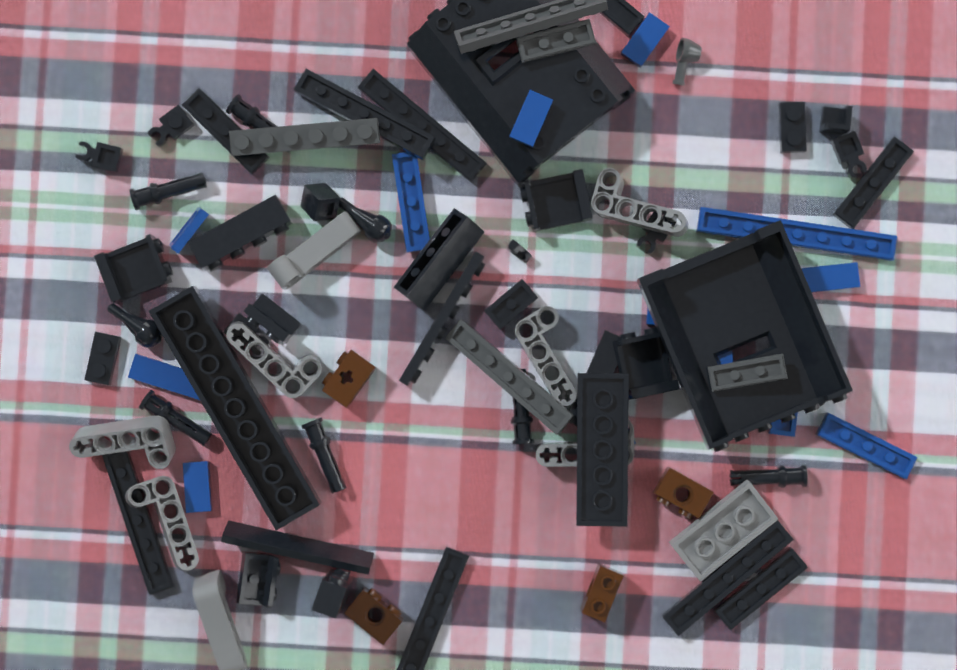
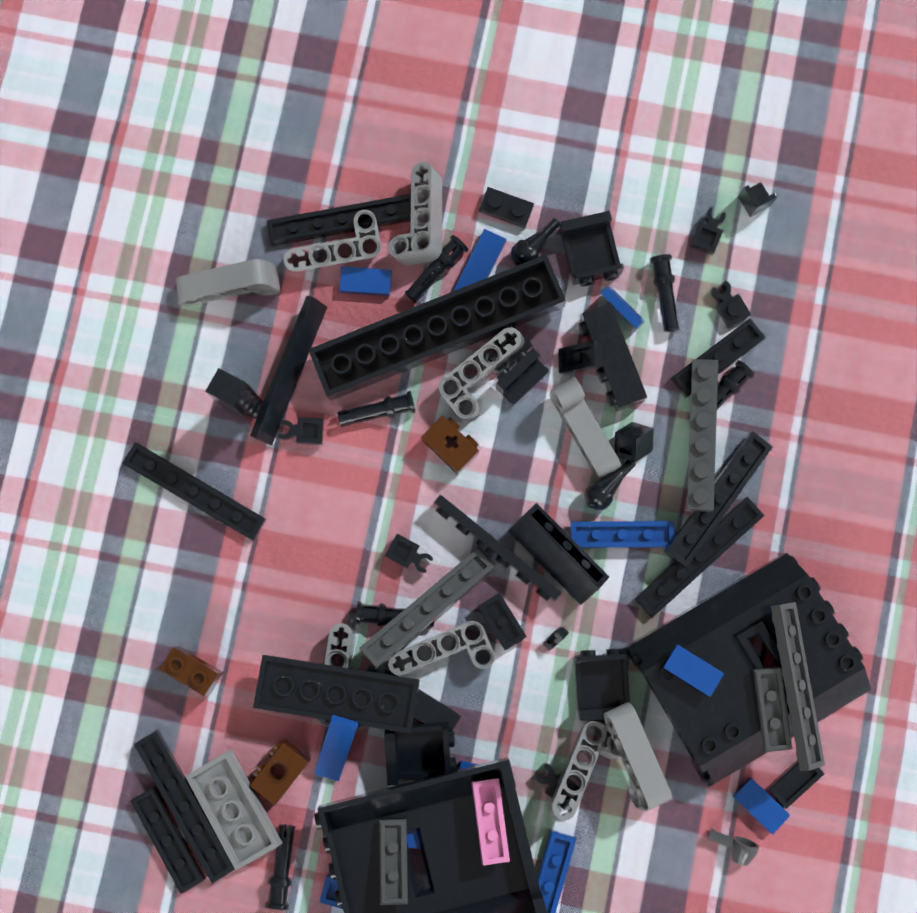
camera: 95 degrees right, 5 degrees down
(60, 113) = (756, 198): none -> black panel
(245, 264) = (580, 357): none -> black plate
(258, 579) = (263, 327): black bracket -> none
(354, 520) = (307, 431): none -> black plate
(381, 628) = (194, 437): reddish brown brick -> none
(458, 407) = (405, 551): none -> black plate
(618, 159) = (647, 779): none -> light grey beam
(652, 442) = (336, 747): none -> blue tile
(697, 288) = (490, 821): none -> bright pink plate

